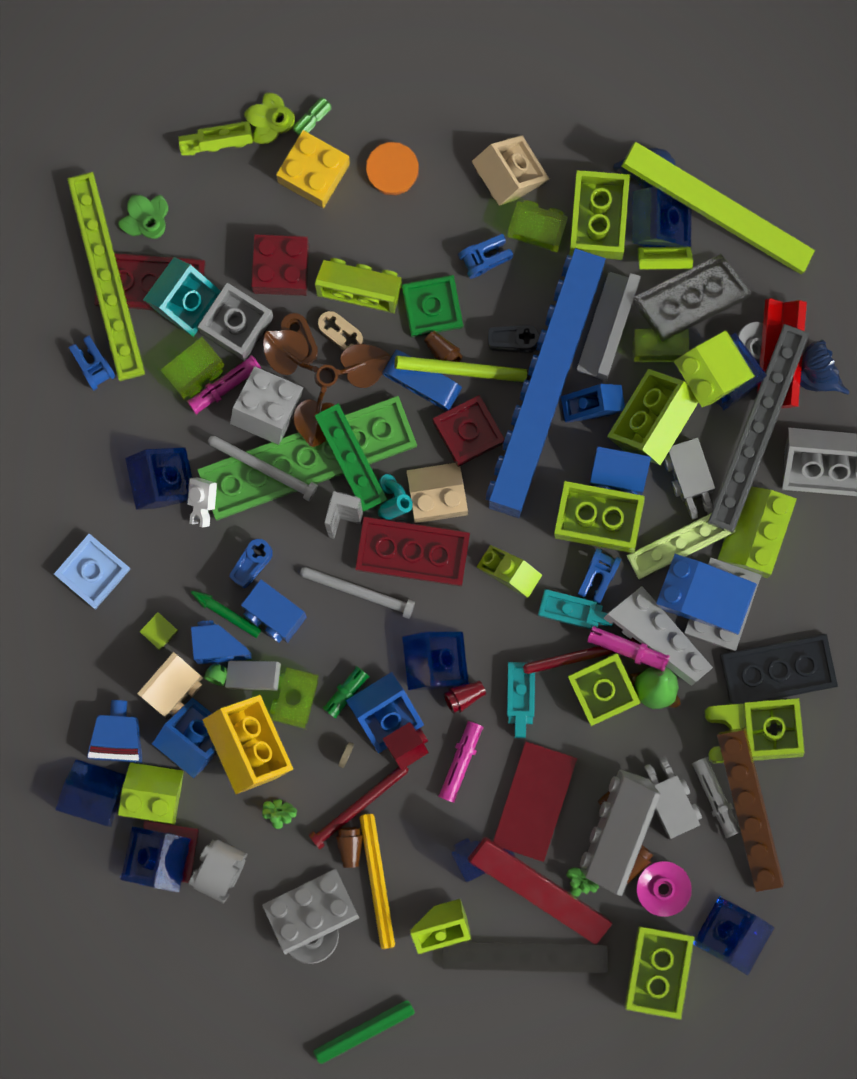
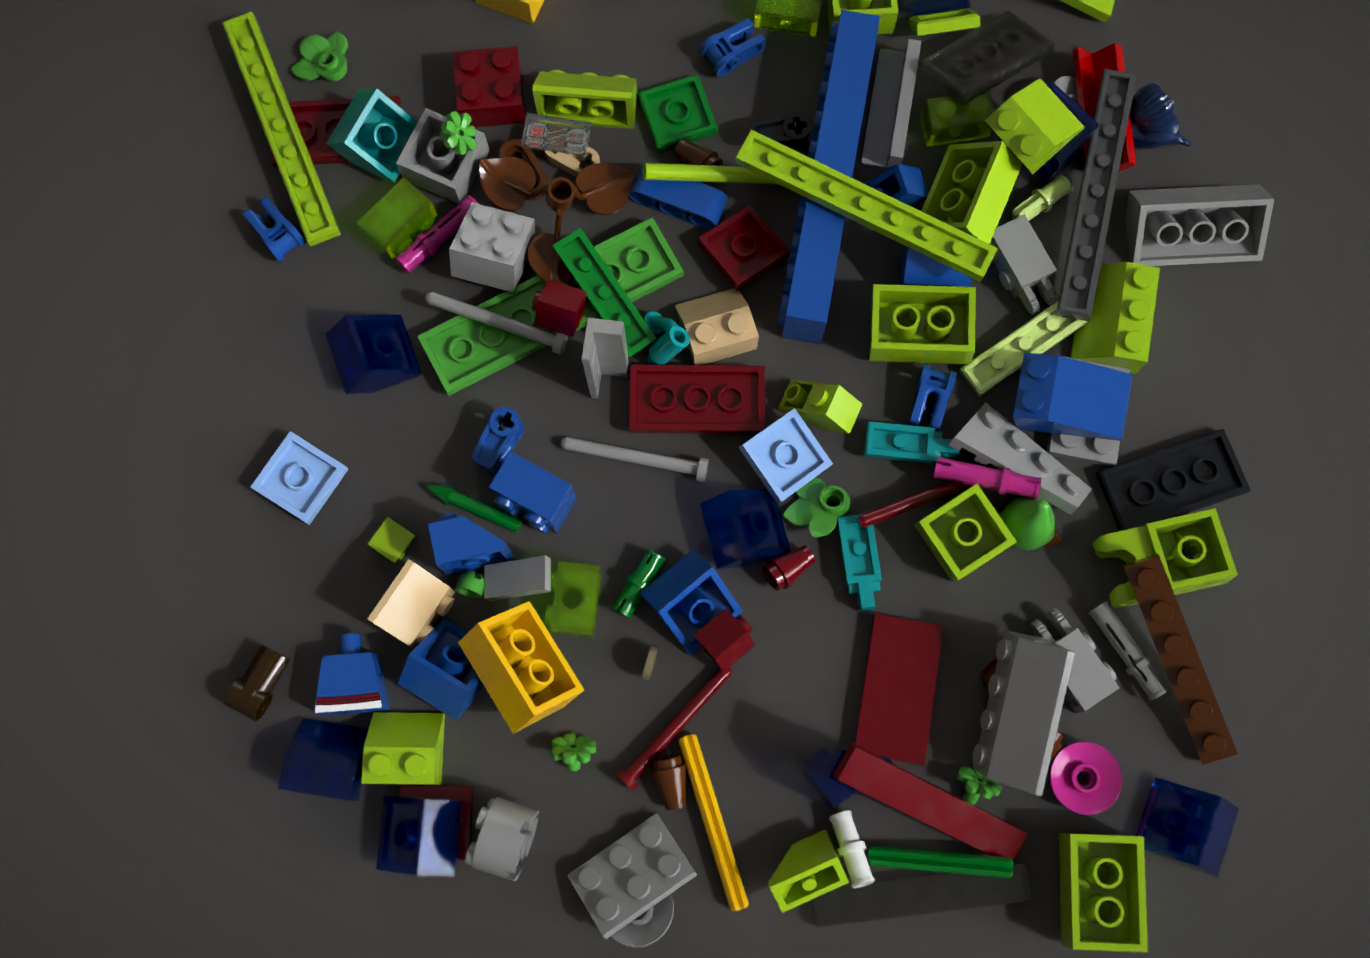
camera: 10 degrees left, 5 degrees down
(40, 734) = (252, 692): none -> dark brown piece
(202, 498) = (427, 369): white plate -> none
(251, 312) = (457, 133): none -> bright green plant
(313, 465) = (559, 307): none -> dark red brick
(330, 314) = (556, 134): none -> clear tile
(461, 760) = (797, 650): dark pink pin -> none
(475, 608) = (785, 455): none -> light blue plate
(478, 916) = (851, 849): none -> white pin
(491, 648) = (812, 507): none -> bright green plate
(542, 934) = (940, 861): none -> green axle
(565, 421) = (866, 205): none -> lime plate
(717, 423) = (1043, 198): none -> yellowish green axle

